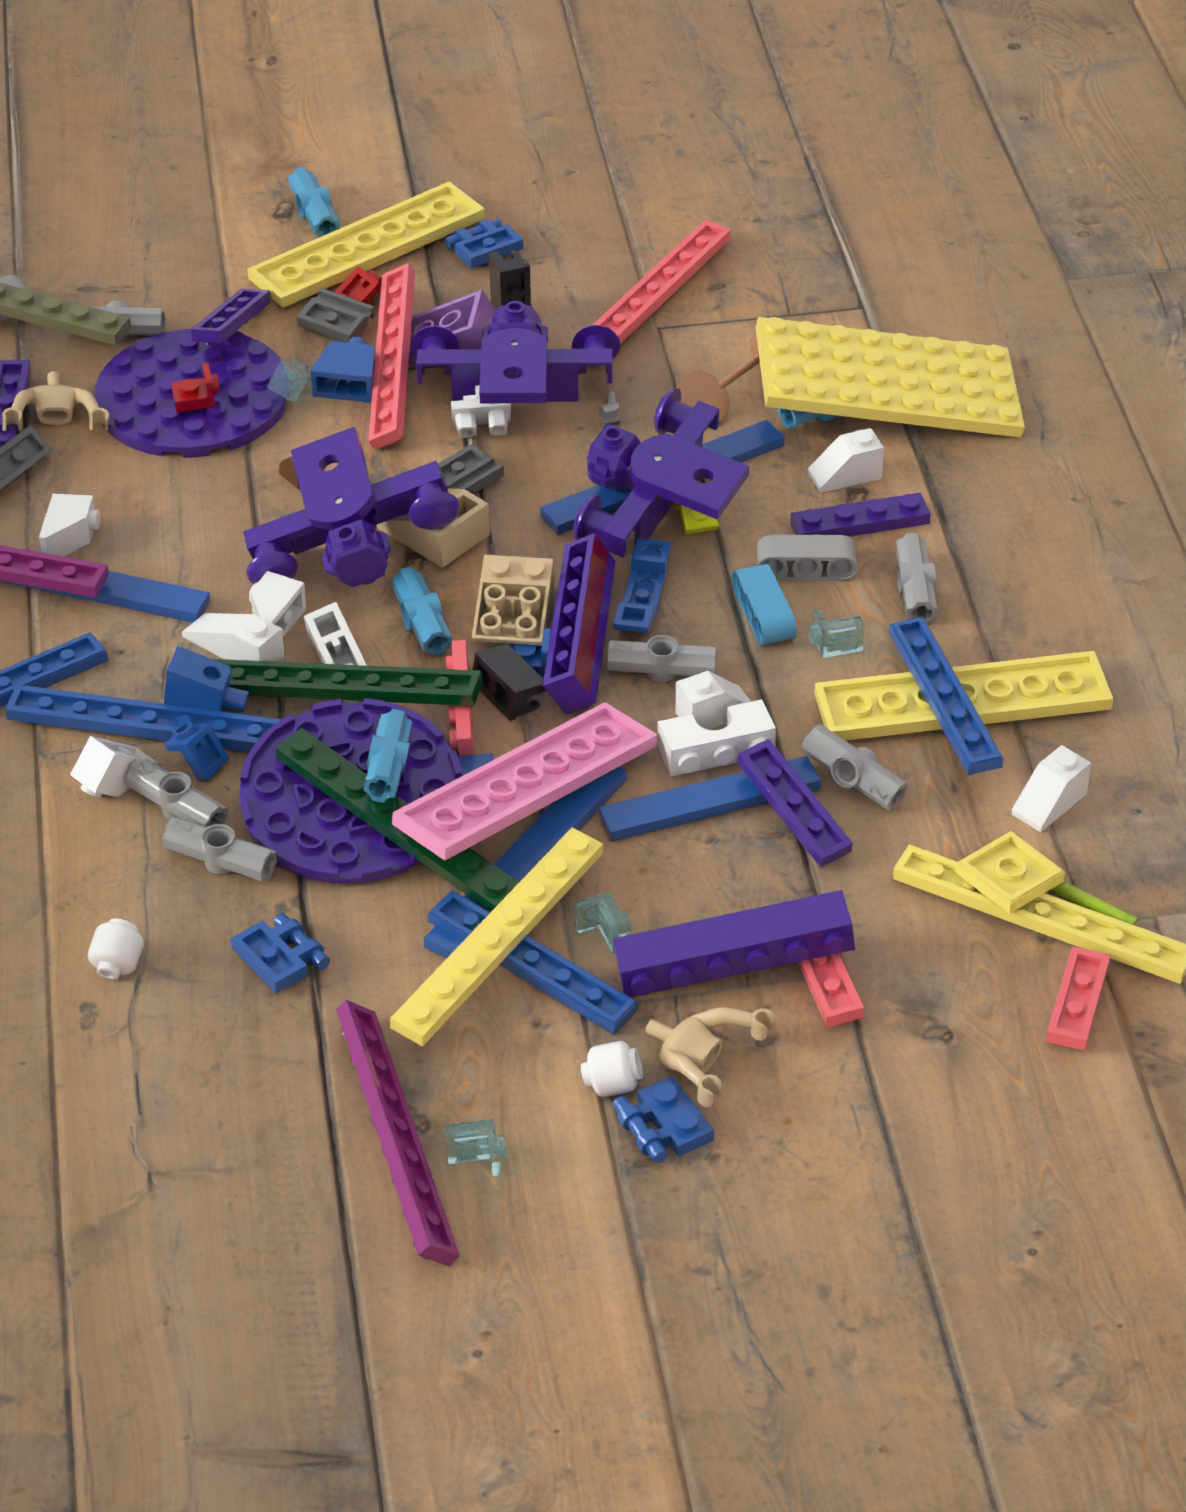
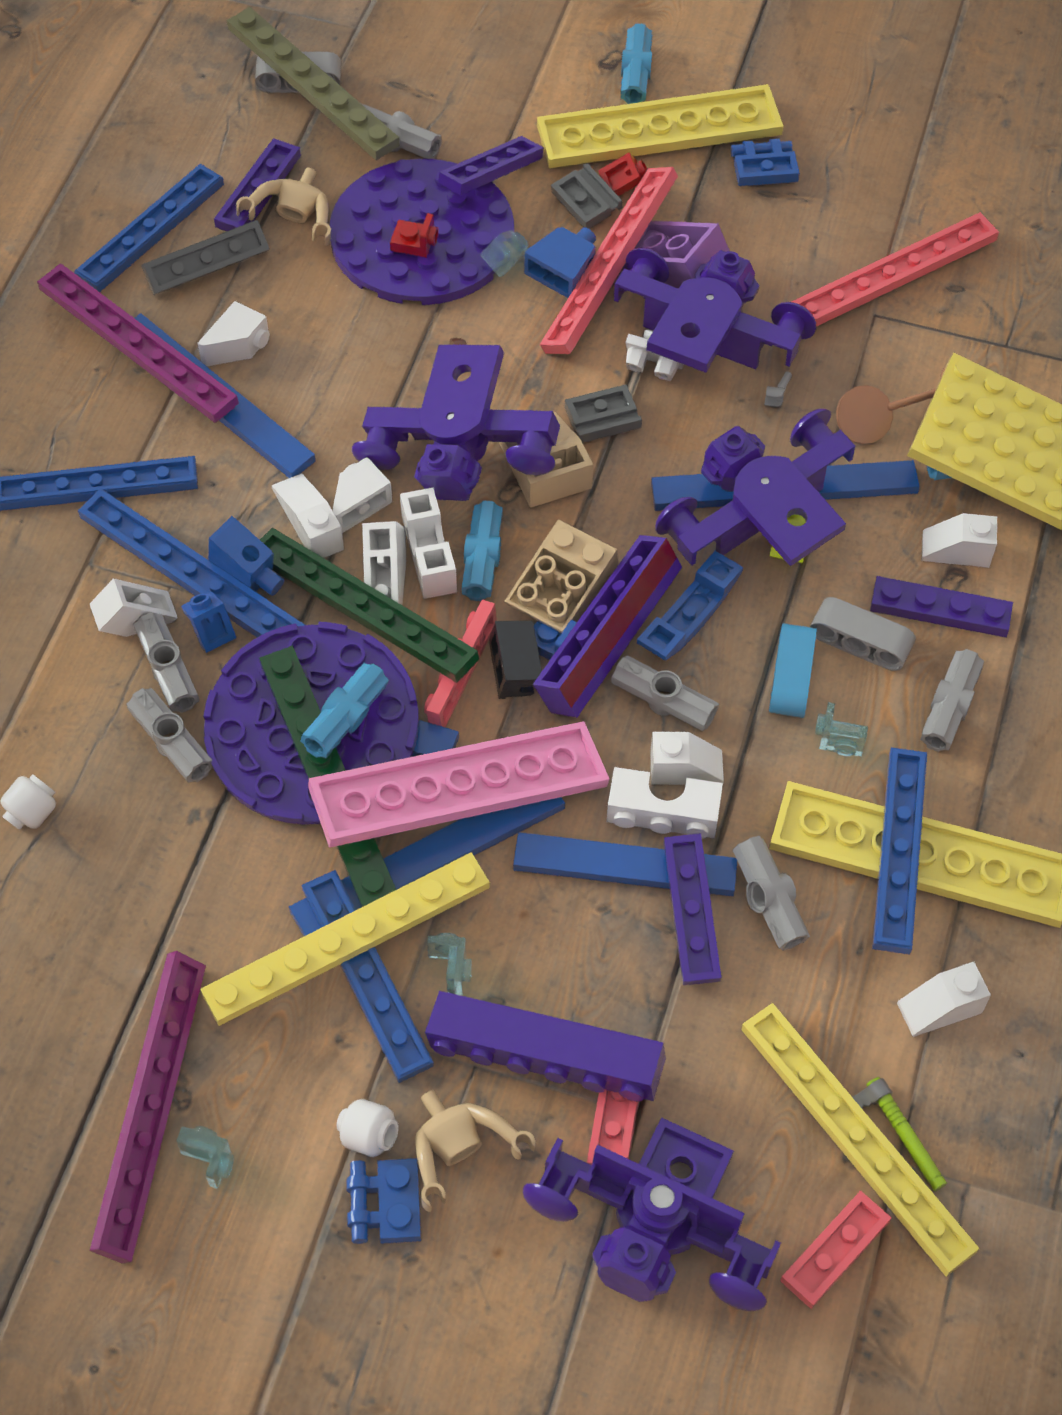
camera: 25 degrees right, 15 degrees up
(272, 958) = (150, 867): blue plate -> none
(384, 633) = (427, 545): none -> white arch
(509, 280) = (753, 226): black hinge -> none
(913, 1024) = (658, 1215): none -> dark purple piece
(1010, 872) = (847, 1080): light yellow tile -> none

